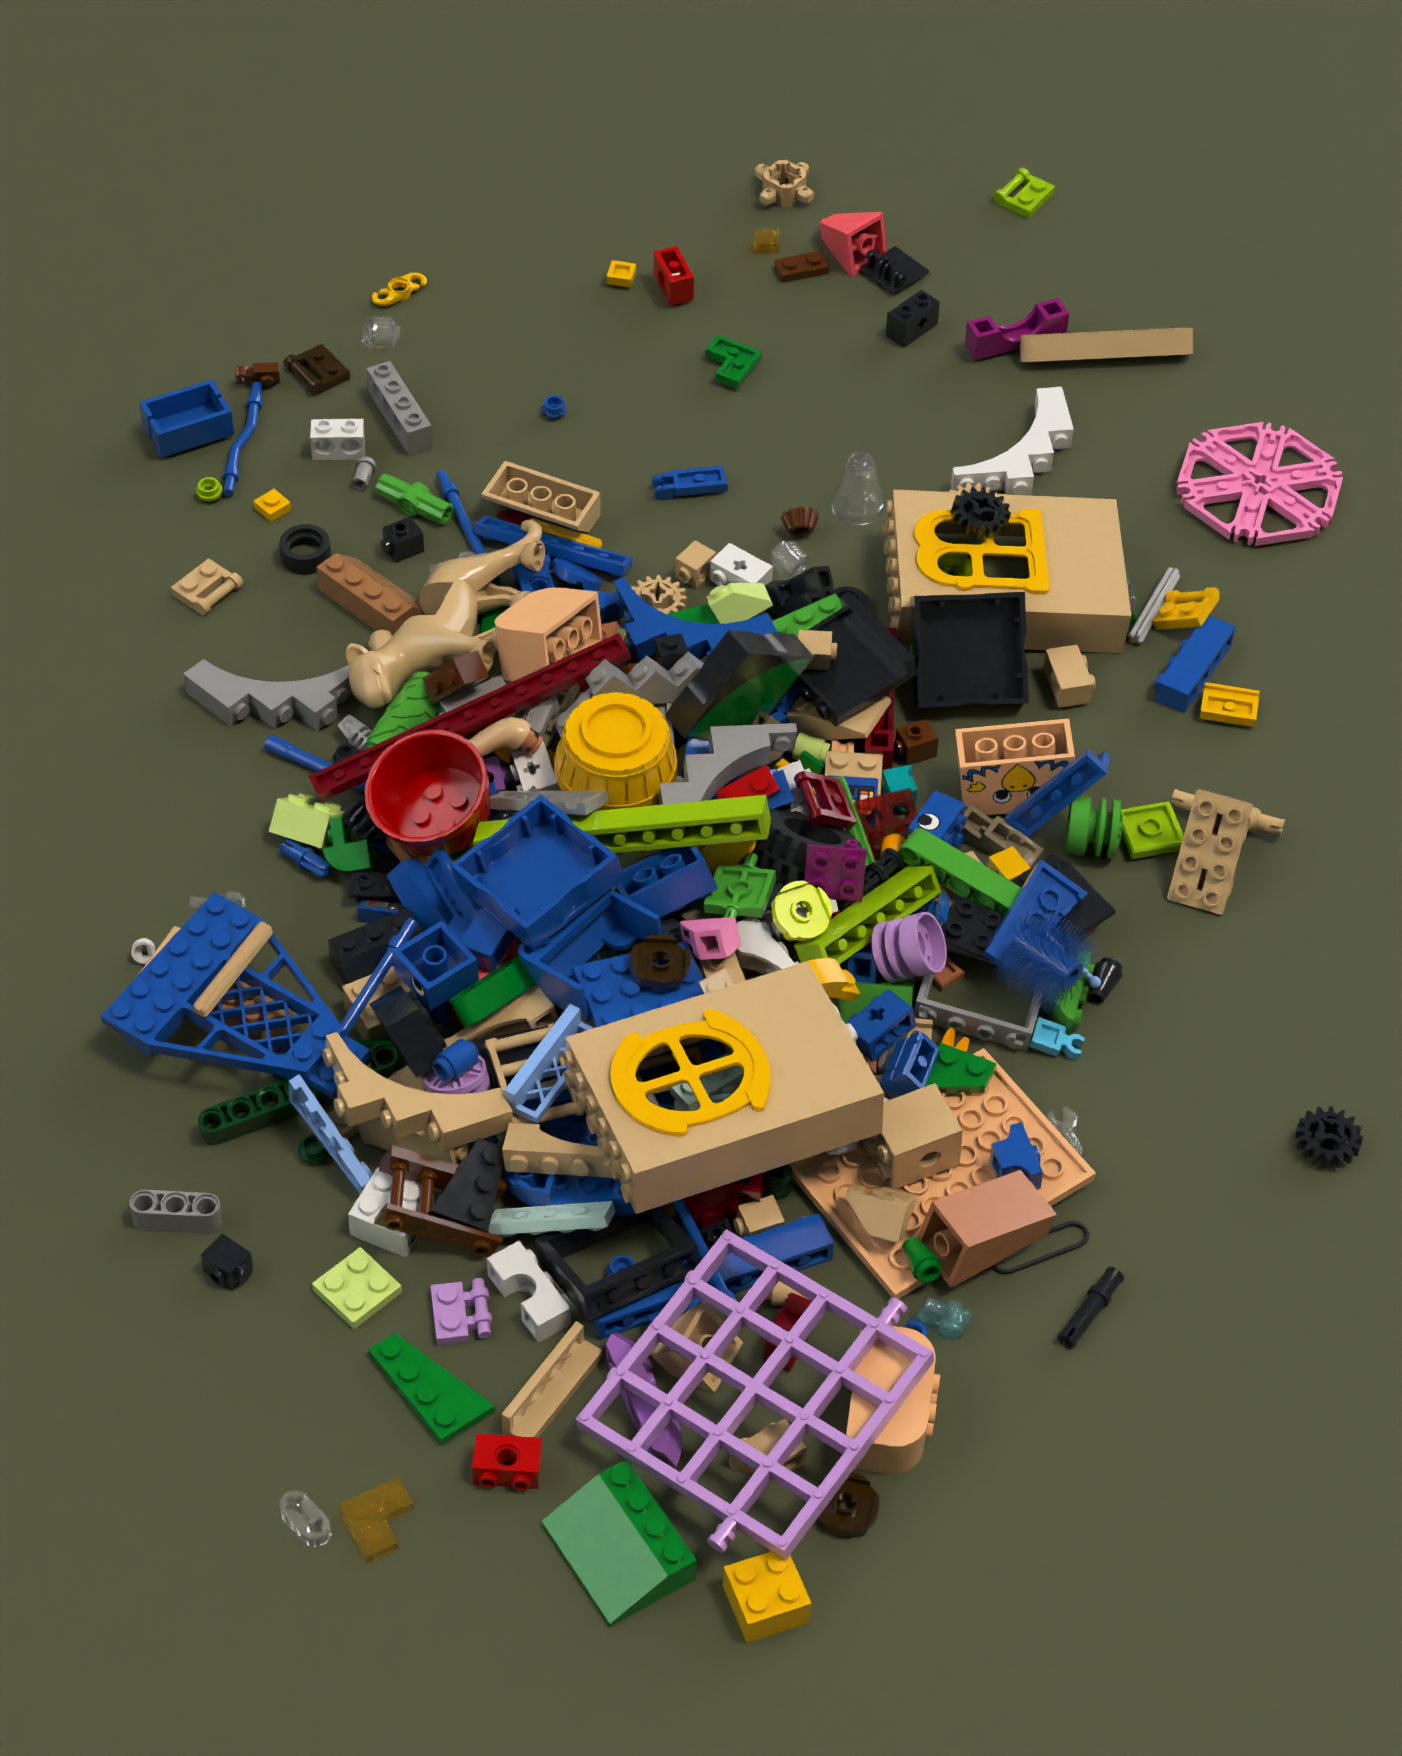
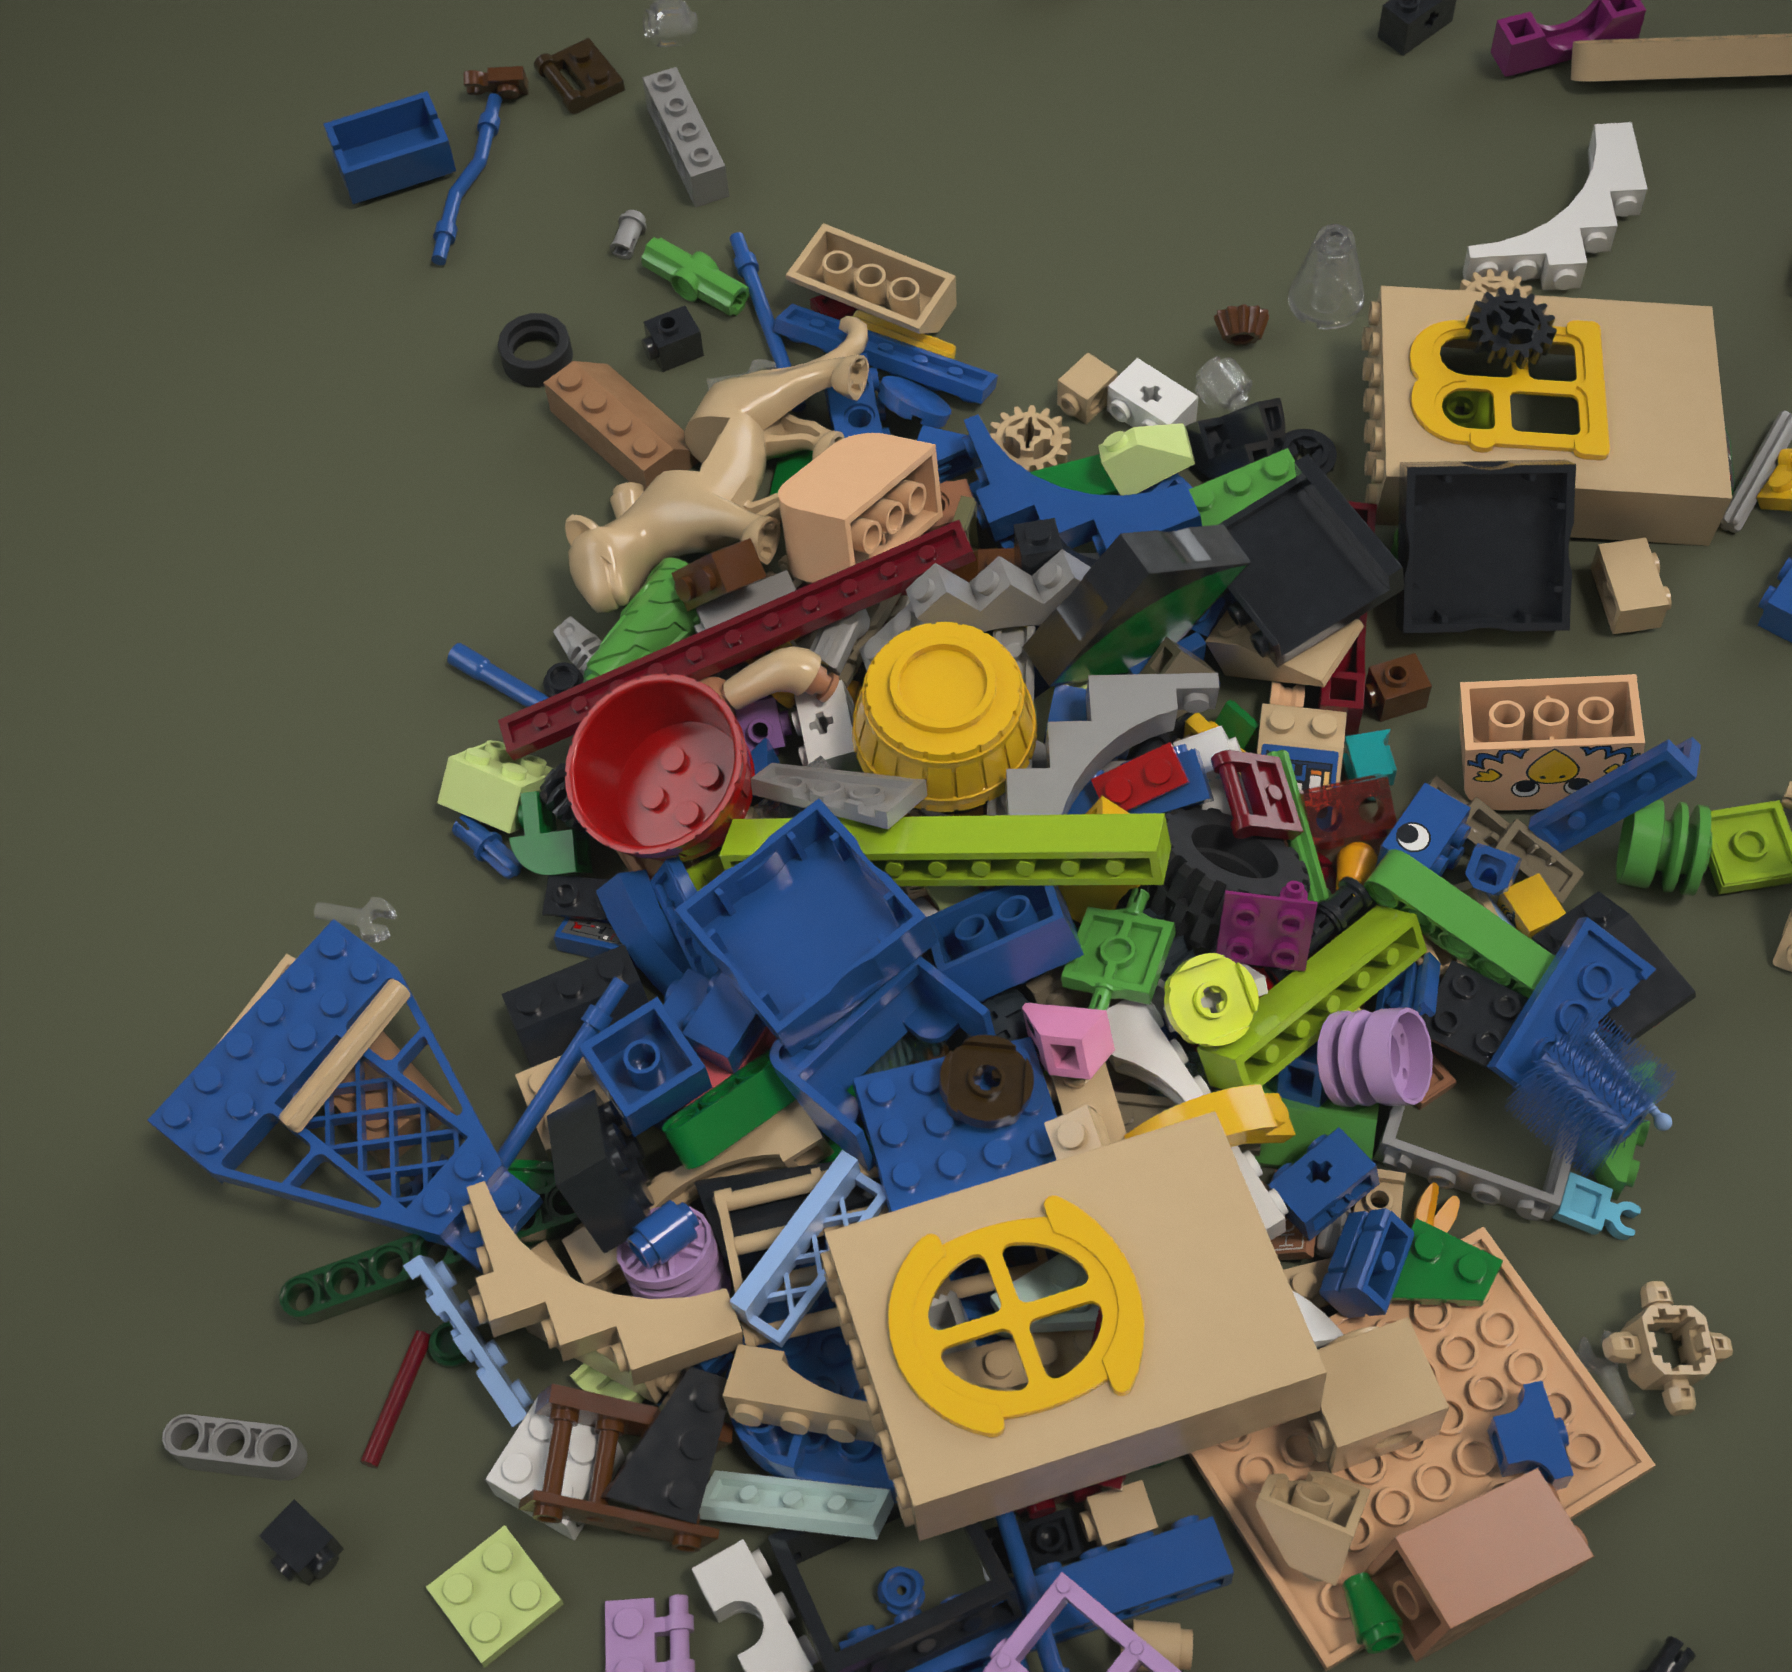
camera: 10 degrees right, 10 degrees up
(137, 952) = (232, 990): white hinge -> none
(203, 581) = (388, 397): tan plate -> none
(209, 489) = (412, 254): lime plate -> none
(272, 505) = (498, 280): yellow plate -> none
(273, 702) = (468, 590): light grey arch -> none
(279, 1183) = (396, 1399): none -> dark red bar
(337, 439) = (595, 182): white brick -> none
(554, 407) = (902, 138): blue plate -> none
(689, 482) = (1087, 258): blue hinge -> none
(736, 360) = (1165, 72): green plate -> none
(813, 745) = (1243, 689): yellowish green brick -> none
(820, 646) = (1259, 541): tan brick -> none
(981, 841) = (1492, 869): none -> blue rock
(1053, 1254) = (1584, 1595): black piece -> none
(1093, 1124) = (1636, 1344): none -> tan piece
(1110, 974) = (1679, 1103): black cone -> none

